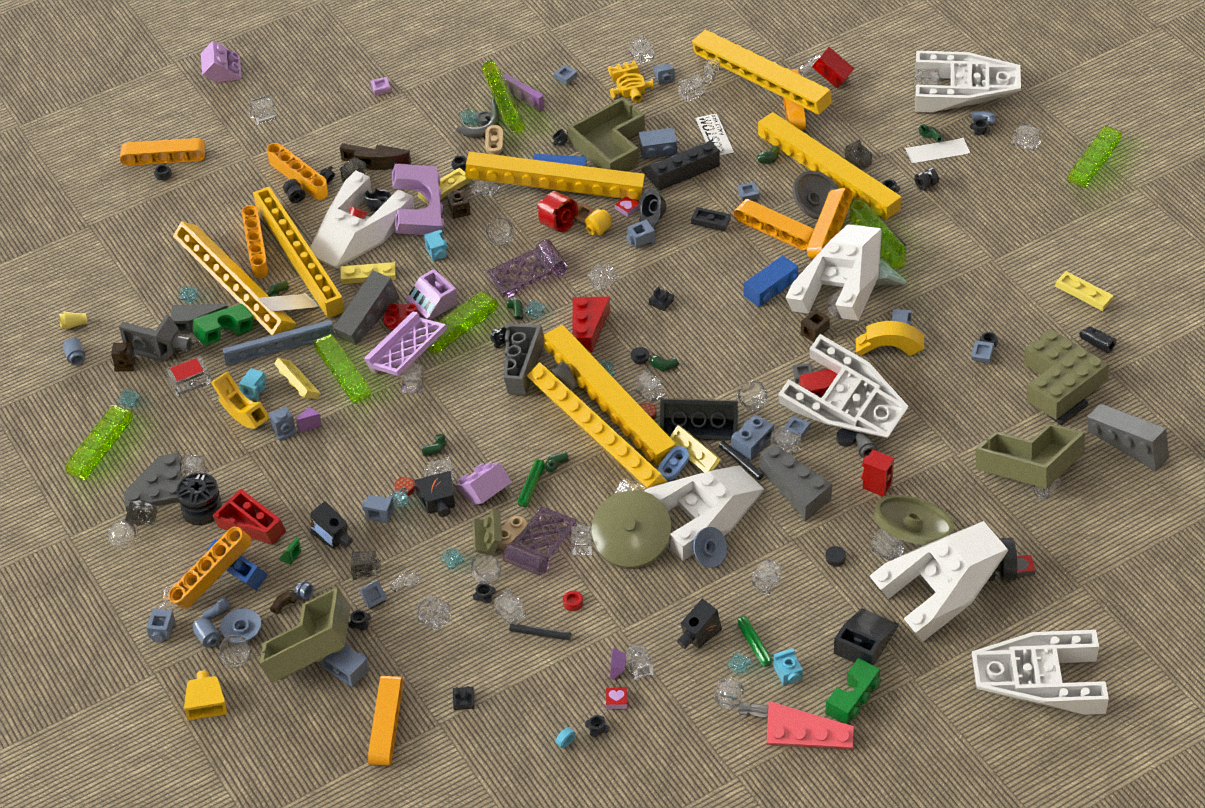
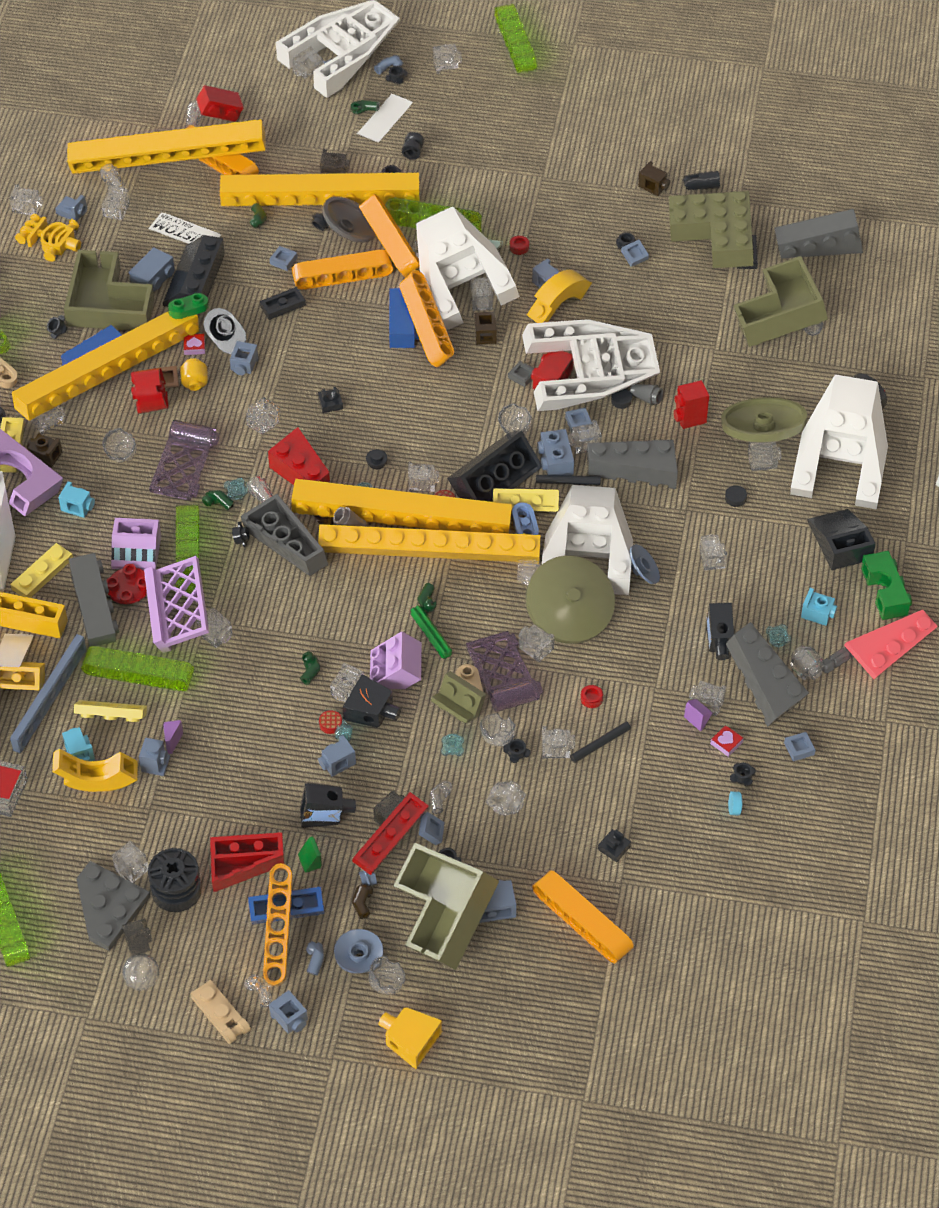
camera: 50 degrees left, 5 degrees up
(132, 593) = (220, 1011): none -> tan plate
(206, 632) = (336, 983): sand blue brick -> none
(339, 572) = (390, 833): none -> red plate
(546, 318) = (259, 488): none -> clear cone
(642, 176) = (188, 306): none -> green plate
(654, 740) = (799, 746): none -> sand blue plate
(663, 364) = (404, 452): dark green arm -> none
(684, 677) = (765, 674): none -> dark grey wedge
(754, 641) = (765, 609): green axle -> none
(772, 295) = (426, 318): none -> light orange beam
(914, 291) = (519, 245): none -> red tile
(1063, 313) = (653, 179): none -> dark brown brick
(1084, 291) = (644, 151): light yellow plate -> none

